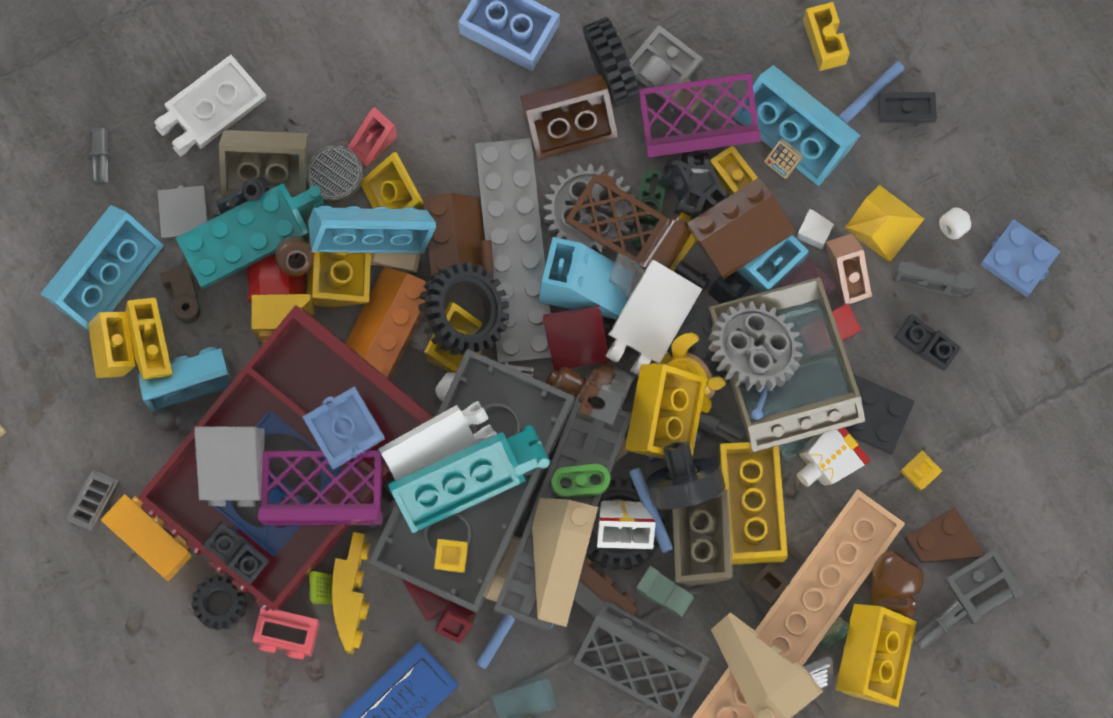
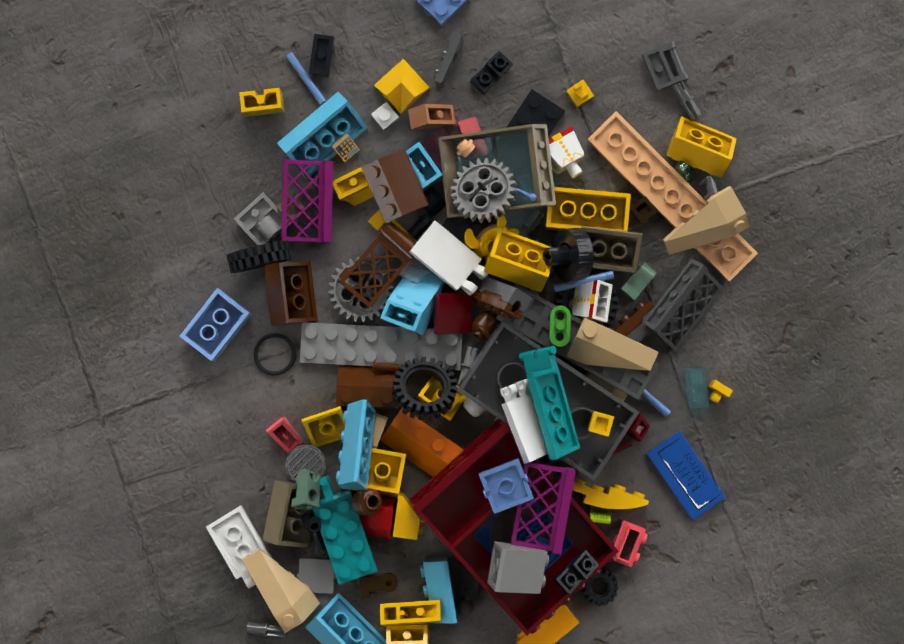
camera: 80 degrees left, 10 degrees up
(153, 167) = (284, 594): none -> tan wedge
(298, 174) = (307, 490): none -> sand green leg
(484, 85) = (292, 350): none -> black tyre
(644, 190) = (350, 248): dark green beam -> none
(696, 179) = (352, 211): black piece -> none
(811, 314) = (465, 147): none -> light nougat plate
(815, 229) = (399, 135): white slope -> none
(838, 206) = (385, 116): none -> white plate
(895, 582) = (655, 124): reddish brown piece -> none
(944, 539) = (629, 86): reddish brown wing -> none
(955, 223) = (410, 37): white piece -> none

